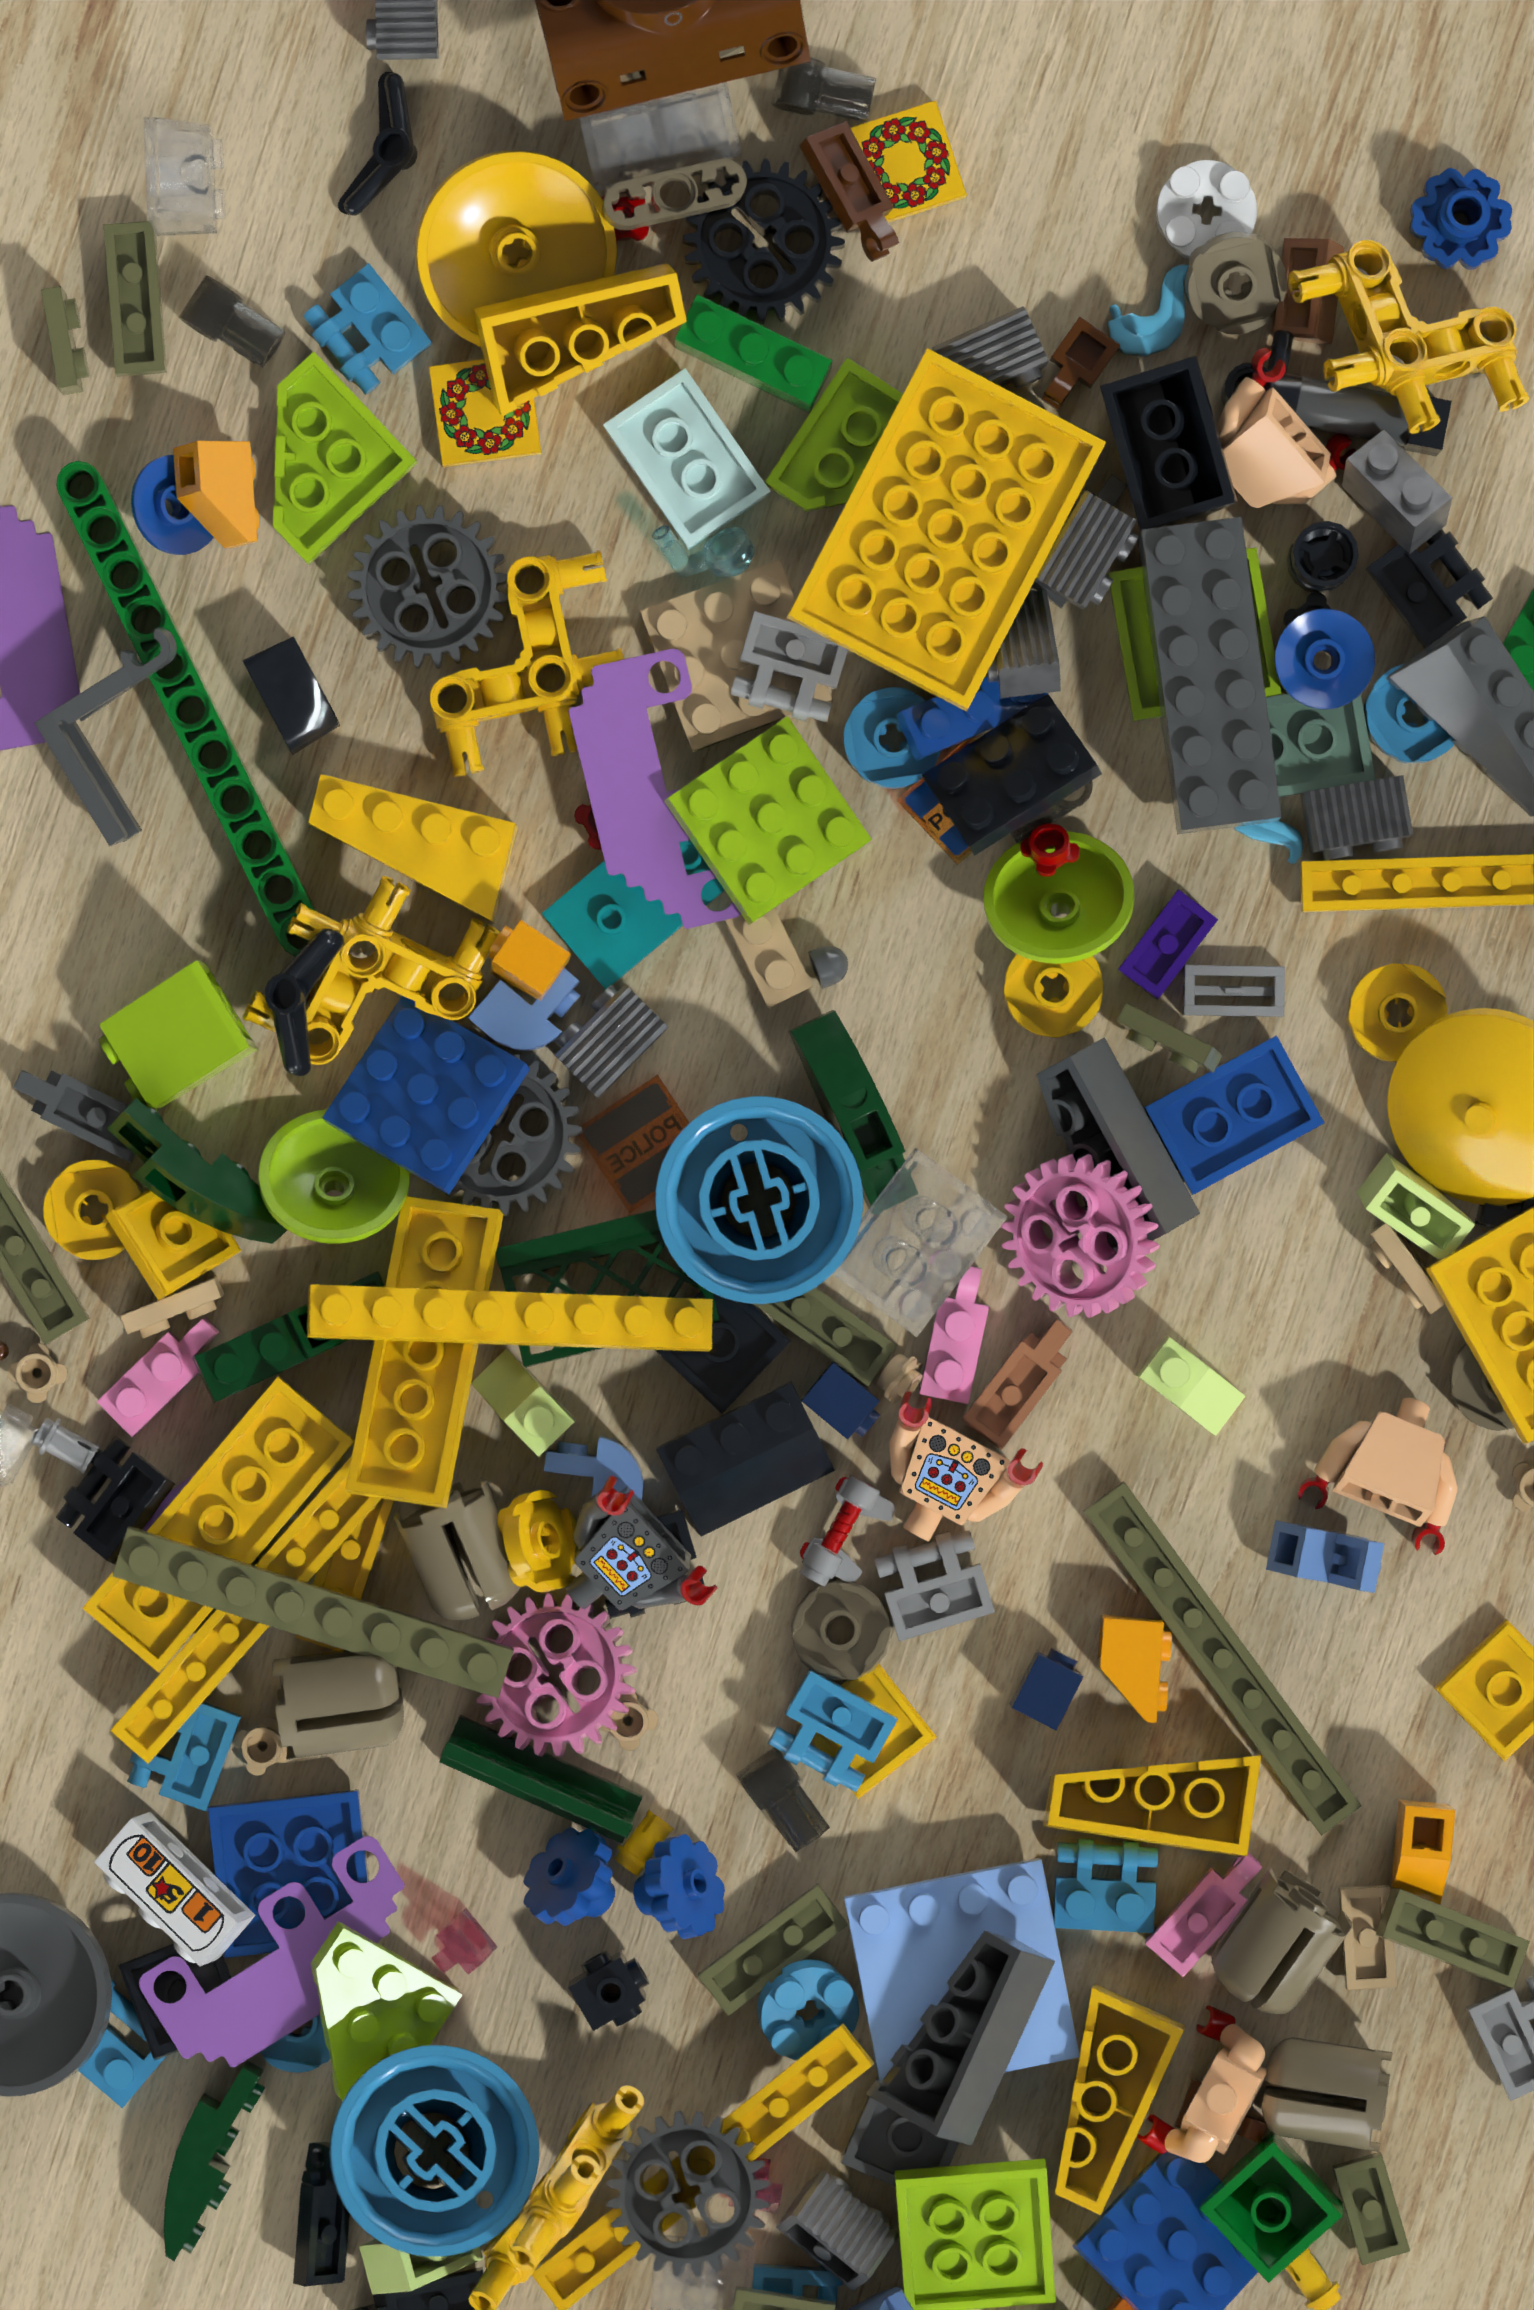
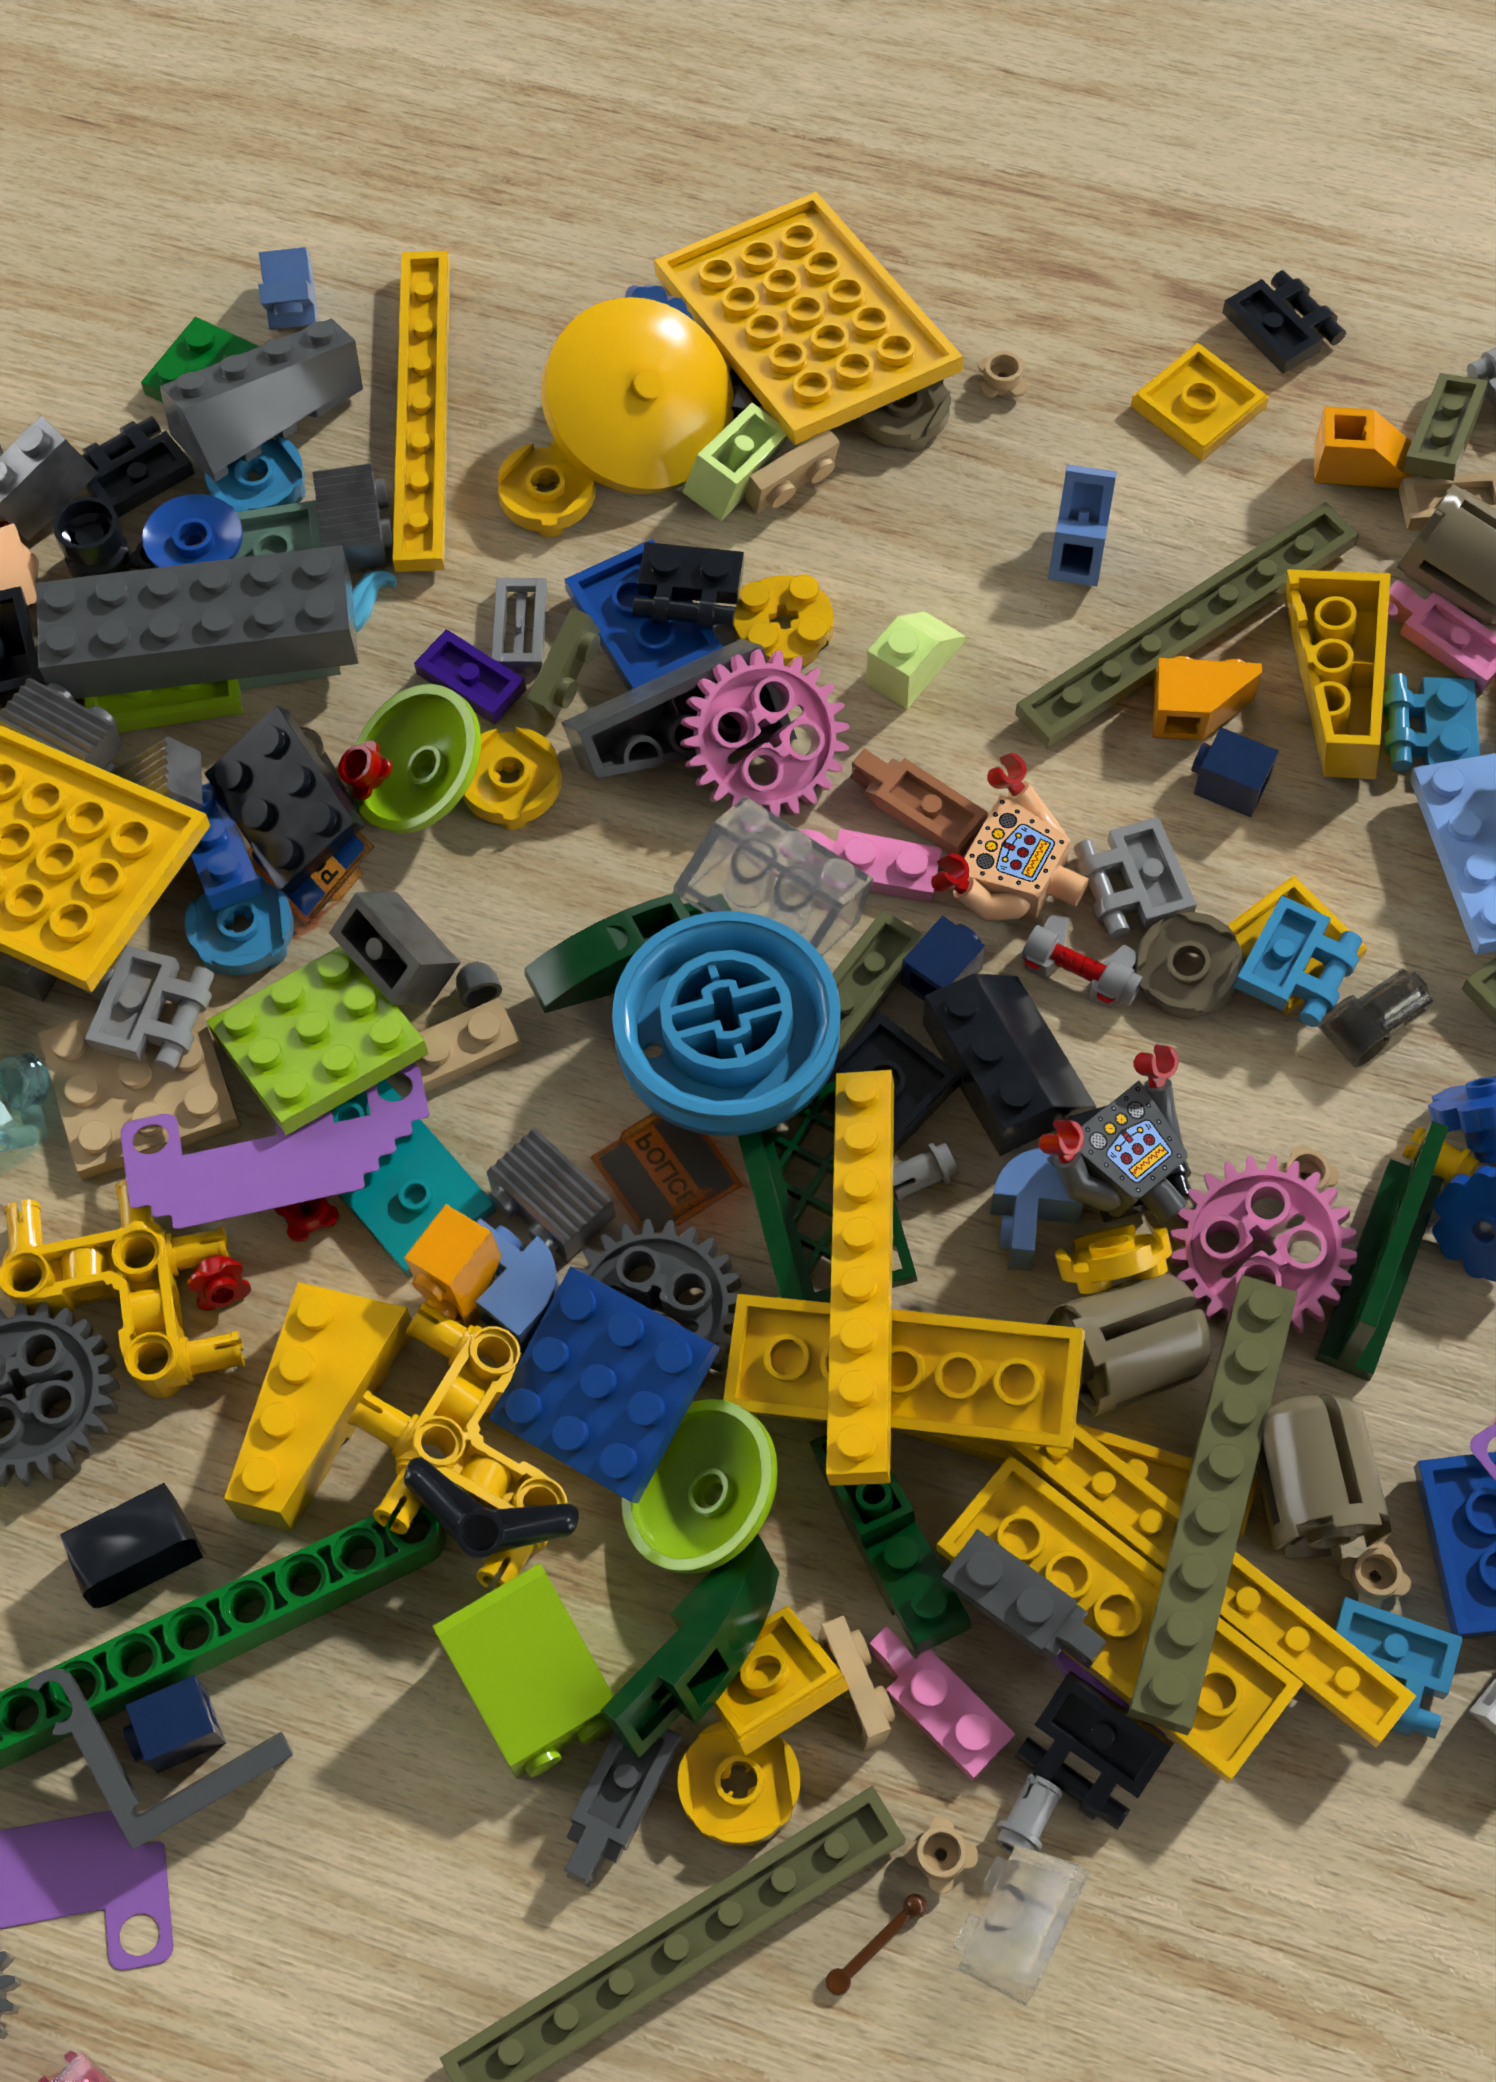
camera: 85 degrees left, 25 degrees down
(140, 742) = (173, 1725): none -> dark blue brick
(225, 1443) = (1021, 1601): none -> dark grey hinge
(523, 1402) = (964, 1272): yellowish green slope -> none
(530, 748) = (218, 1282): none -> red plate
(634, 1376) = (923, 1171): none -> light grey pin
(856, 888) = (394, 947): none -> flat silver brick
(900, 1376) = (916, 908): tan plate -> none
(1257, 1272) = (787, 596): none -> yellow plate
(1273, 1163) = (689, 574): none -> black plate
(1393, 1469) = (992, 479): light nougat torso -> none

